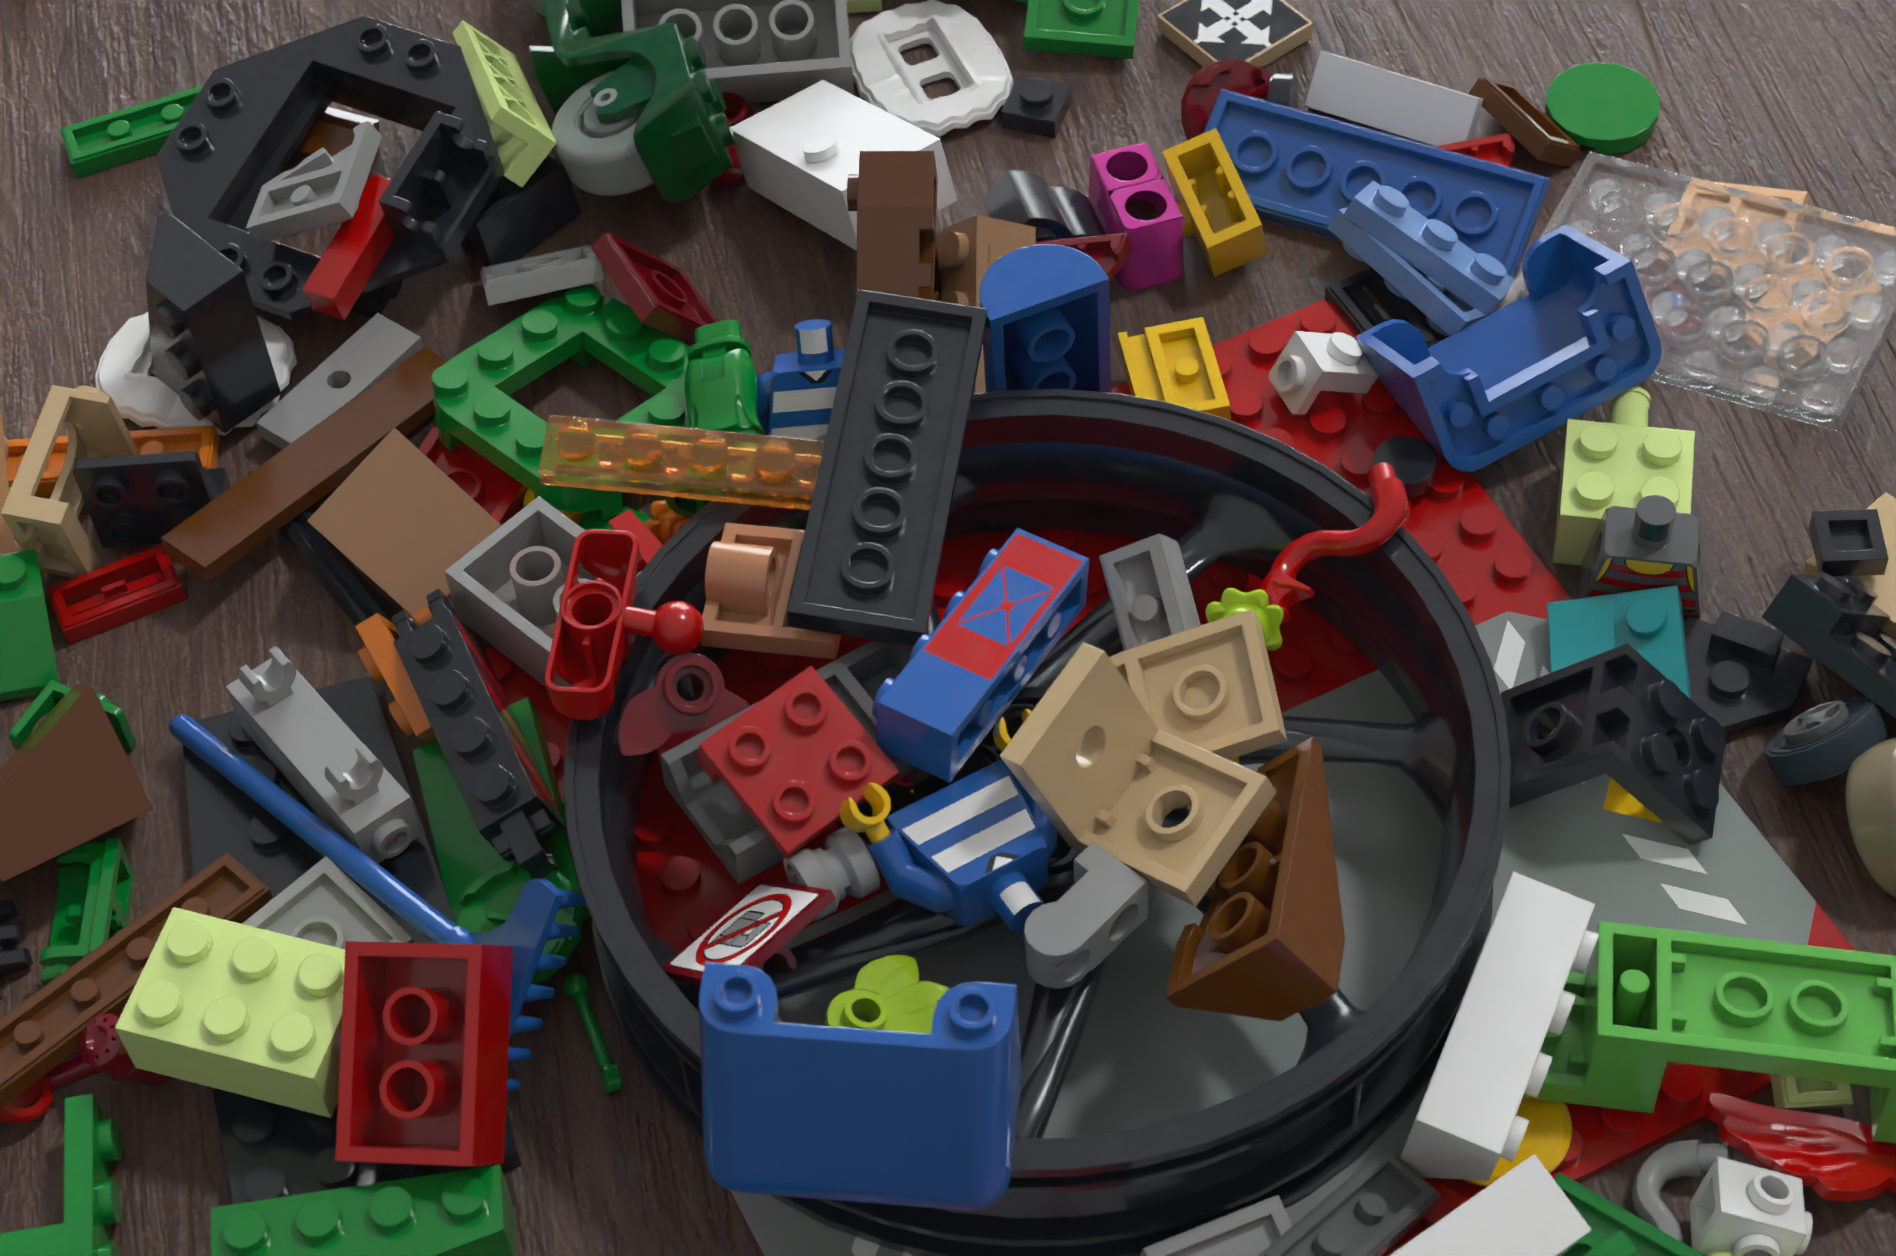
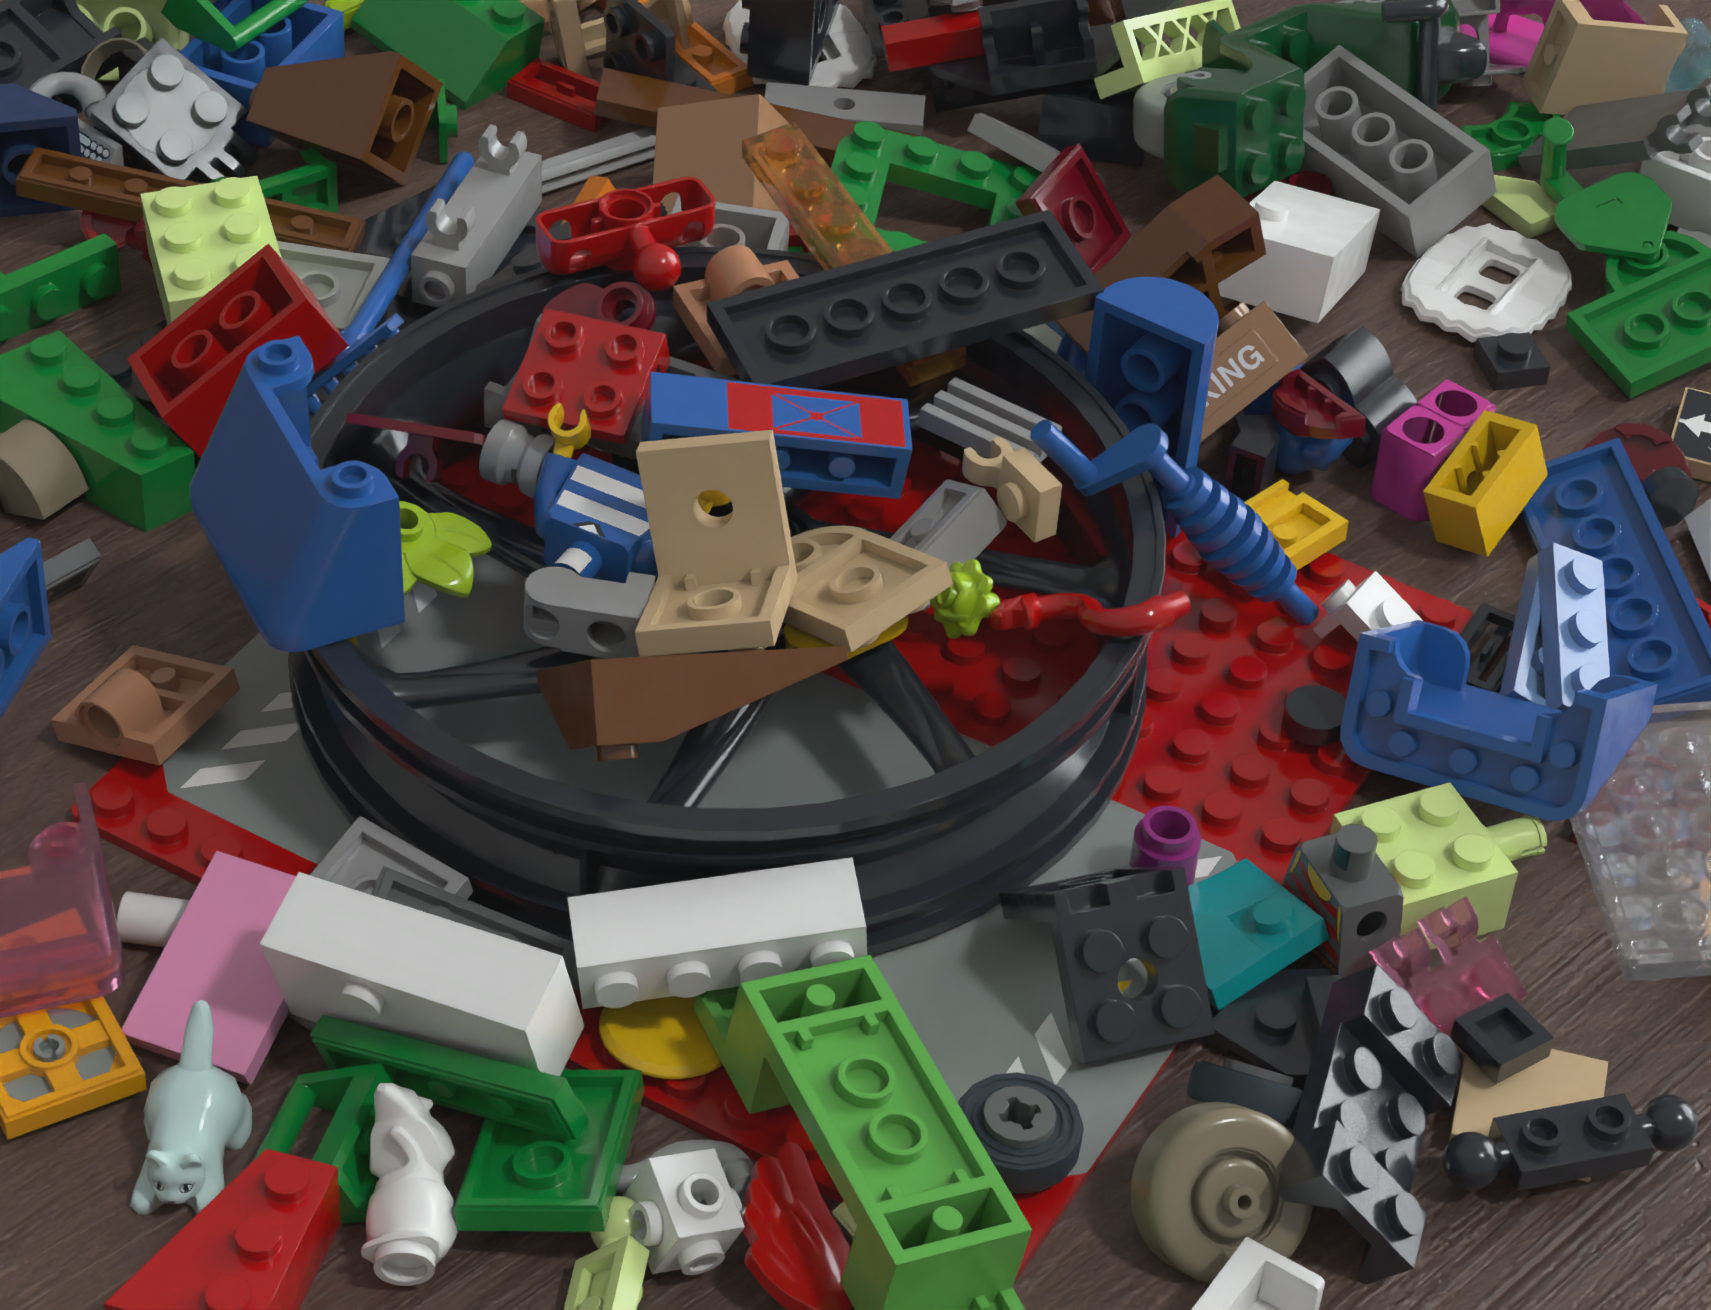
camera: 50 degrees right, 10 degrees down
(244, 618) = (598, 159): none -> light grey axle
(1041, 482) = (976, 417): none -> light grey tile
(1164, 505) = (1023, 485): none -> tan plate
(1192, 398) = (1214, 520): none -> blue piece
(1518, 648) = (1167, 839): none -> magenta brick
(1762, 536) = (1467, 979): none -> clear pink plate
(1764, 895) = (1025, 1128): none -> black wheel

